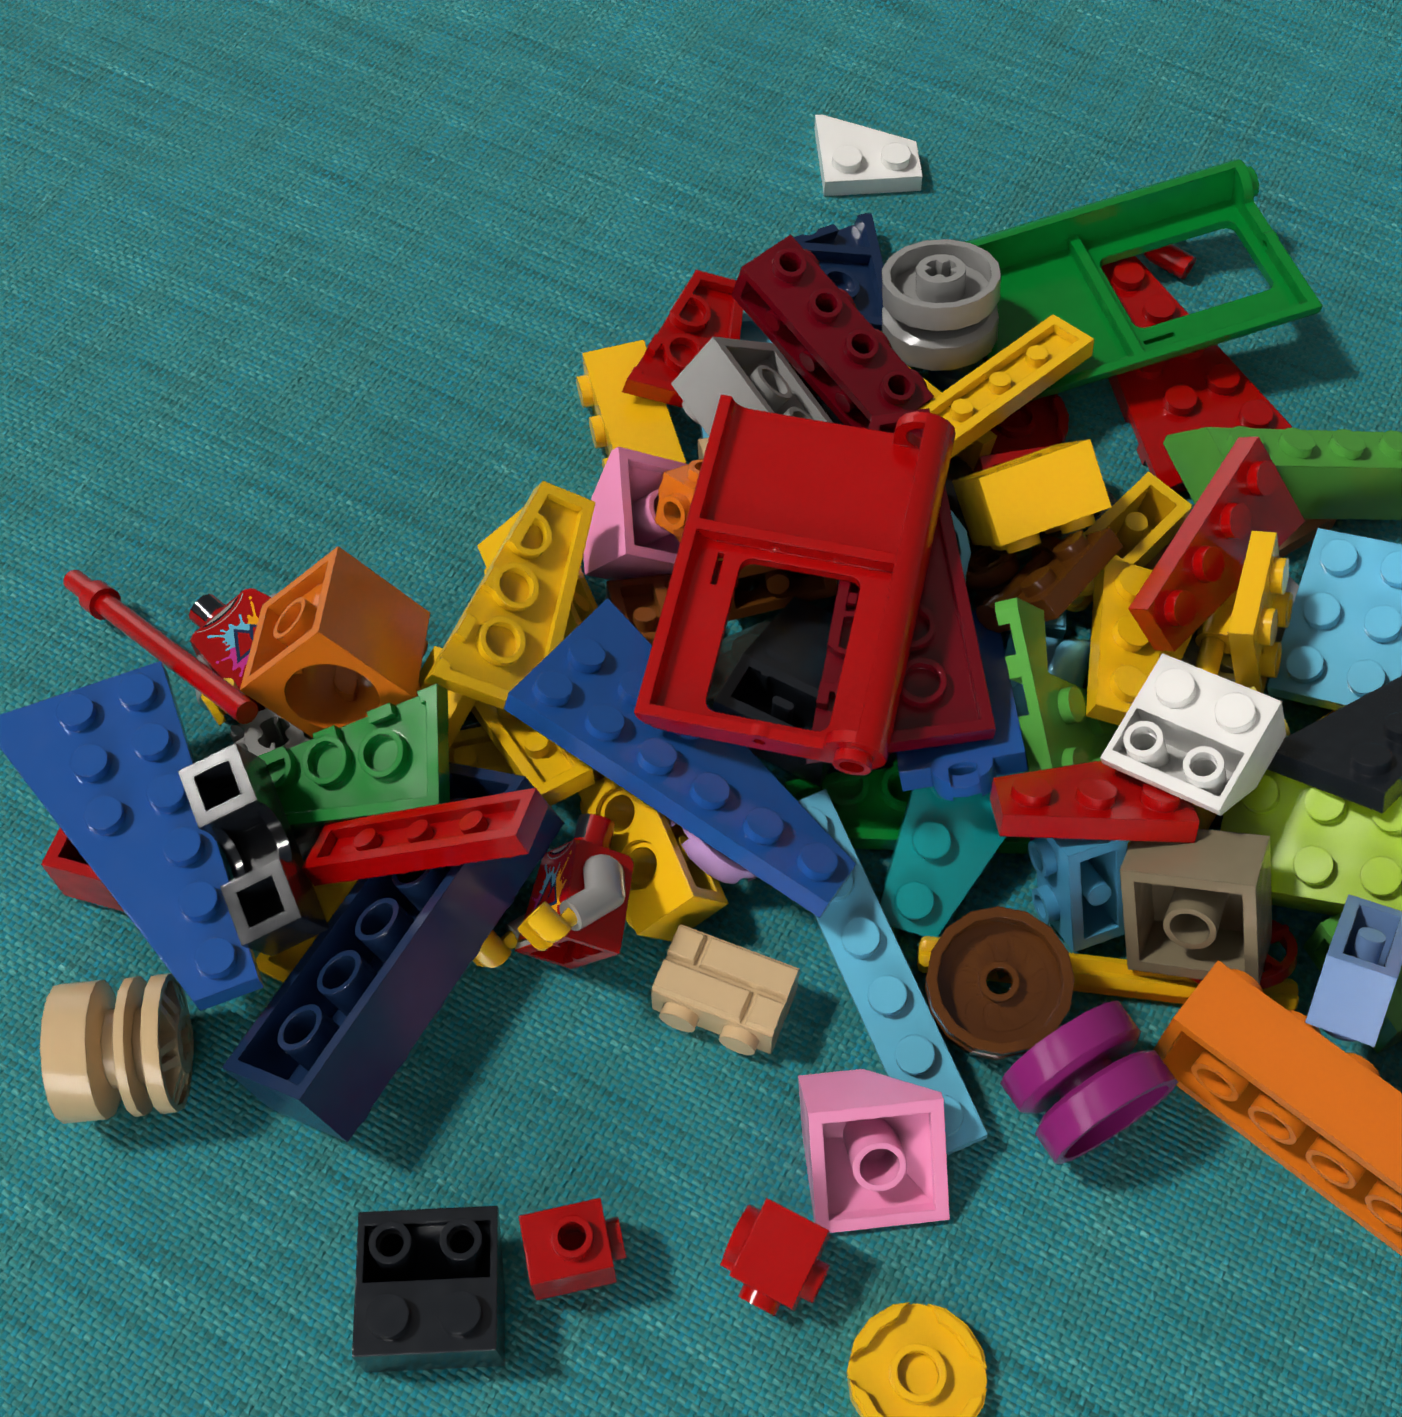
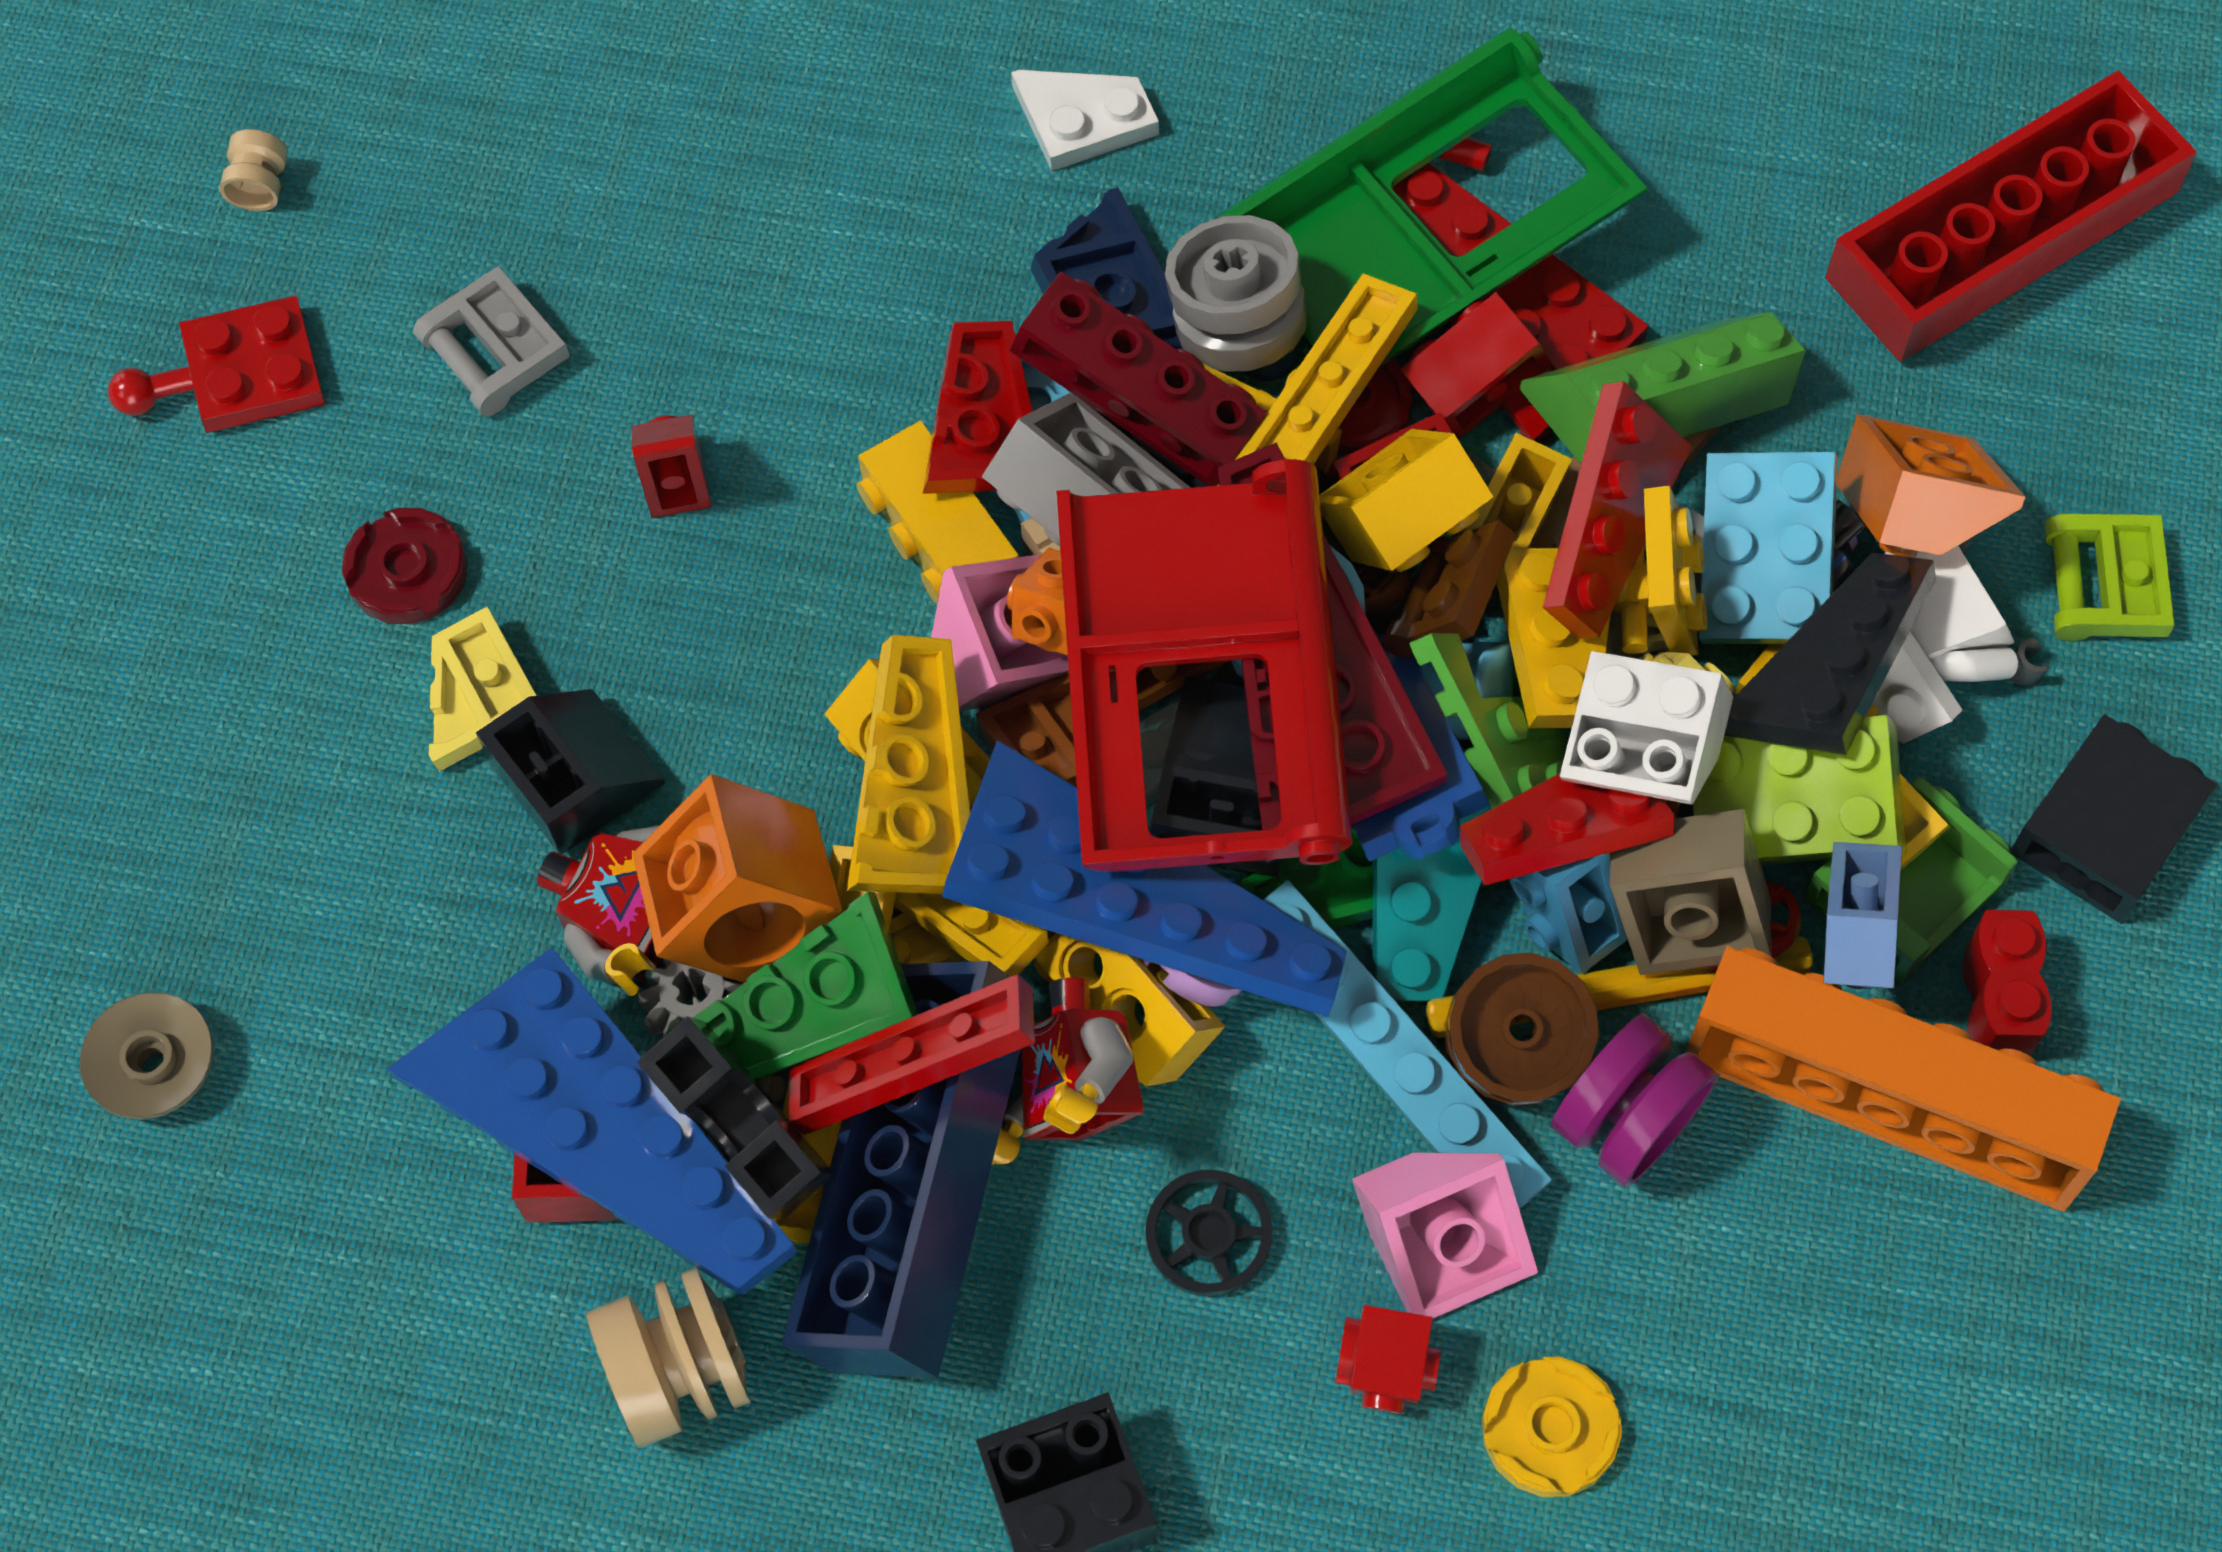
camera: 15 degrees left, 5 degrees up
(105, 604) = (435, 894): red bar -> none
(131, 178) = (240, 365): none -> red plate
(197, 352) = (405, 566): none -> dark red tile
(206, 46) = (254, 168): none -> tan wheel
(209, 456) = (472, 685): none -> light yellow wing
(252, 527) = (568, 764): none -> black slope
(348, 199) = (505, 327): none -> light grey plate
(430, 326) = (670, 465): none -> red slope
(571, 1248) = (1189, 1411): red brick -> none
(652, 1087) = (1208, 1233): none -> black wheel
(724, 991) = (1249, 1116): tan brick -> none
(1131, 414) = (1475, 364): none -> red brick

